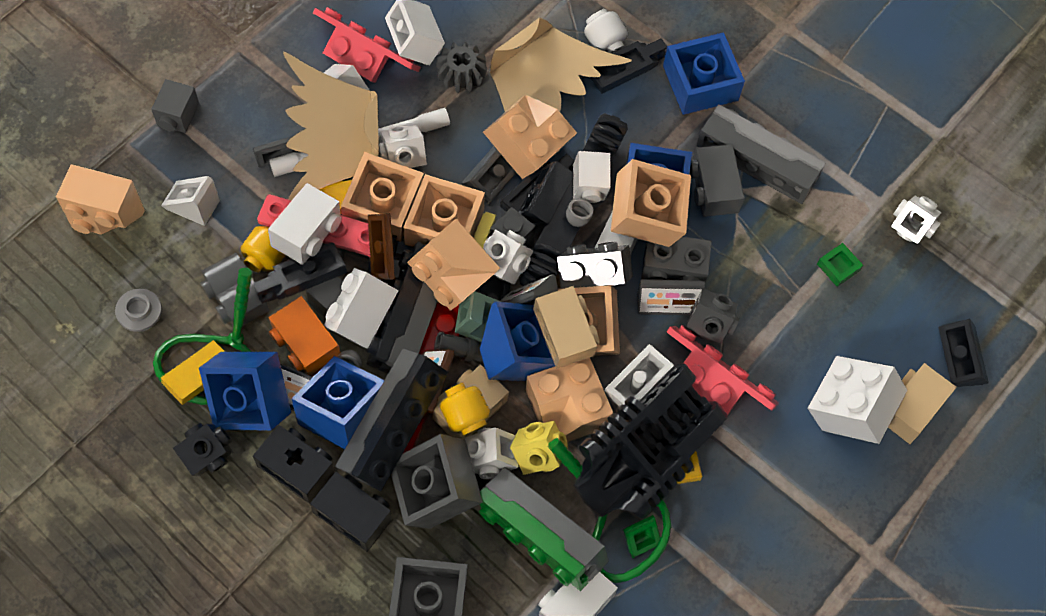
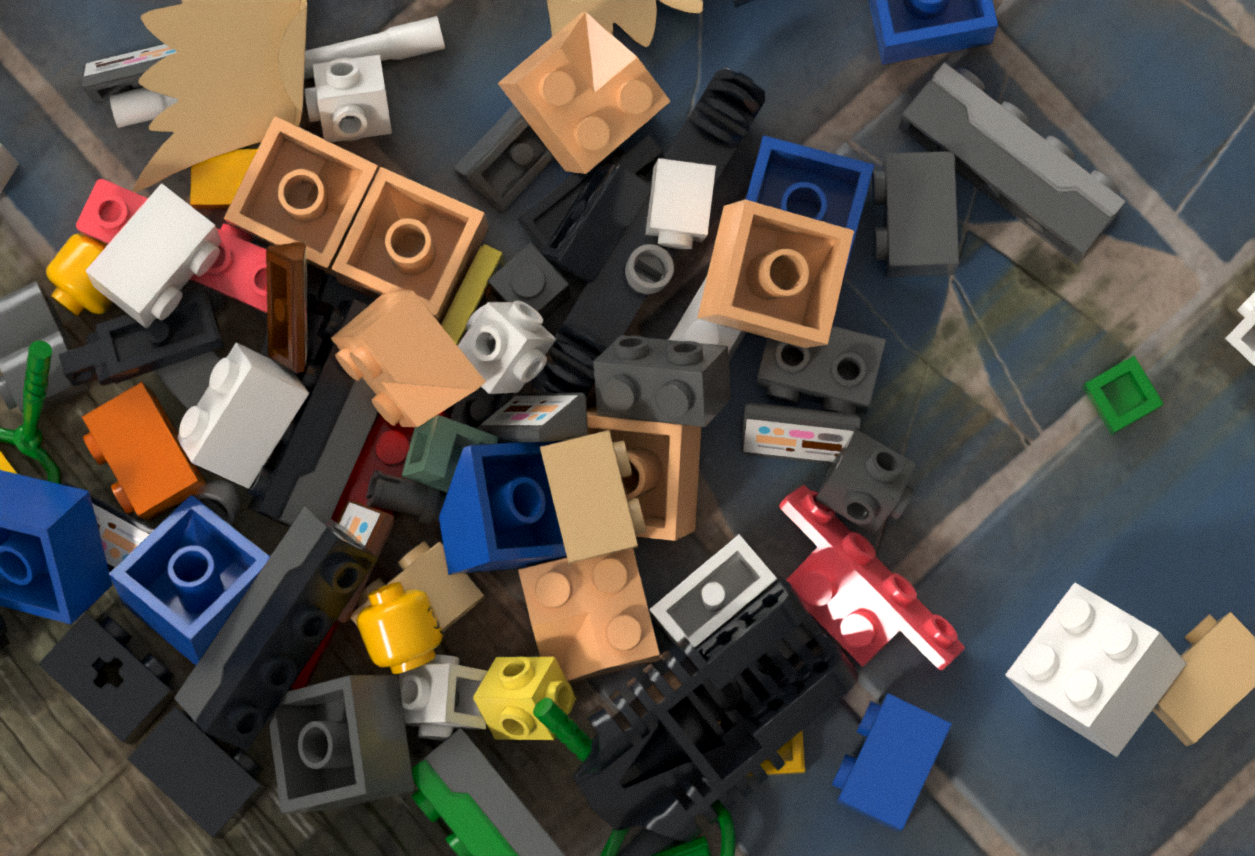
camera: 20 degrees right, 15 degrees up
(751, 465) = (891, 762): none -> blue brick

